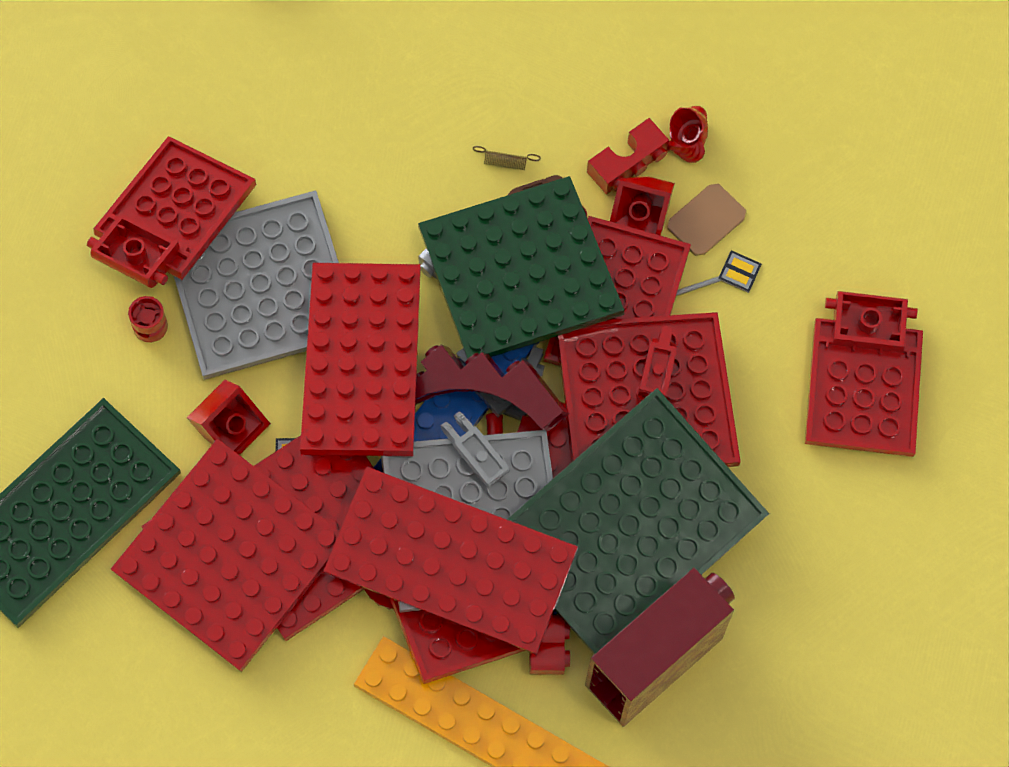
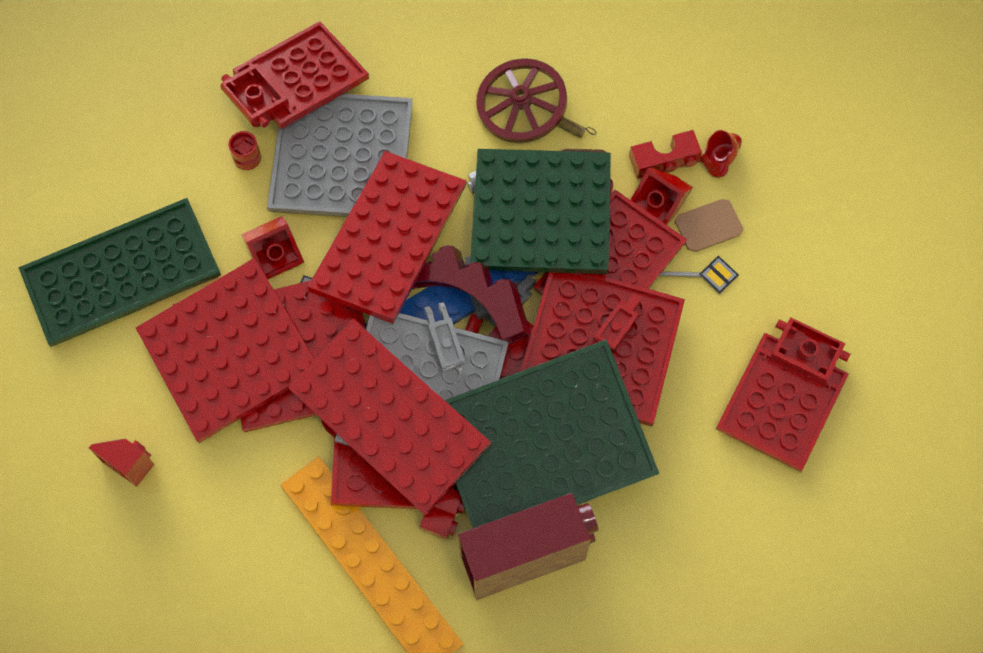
camera: 25 degrees right, 0 degrees up
(165, 721) = (124, 458): none -> red slope
(442, 153) = (521, 102): none -> dark red wheel

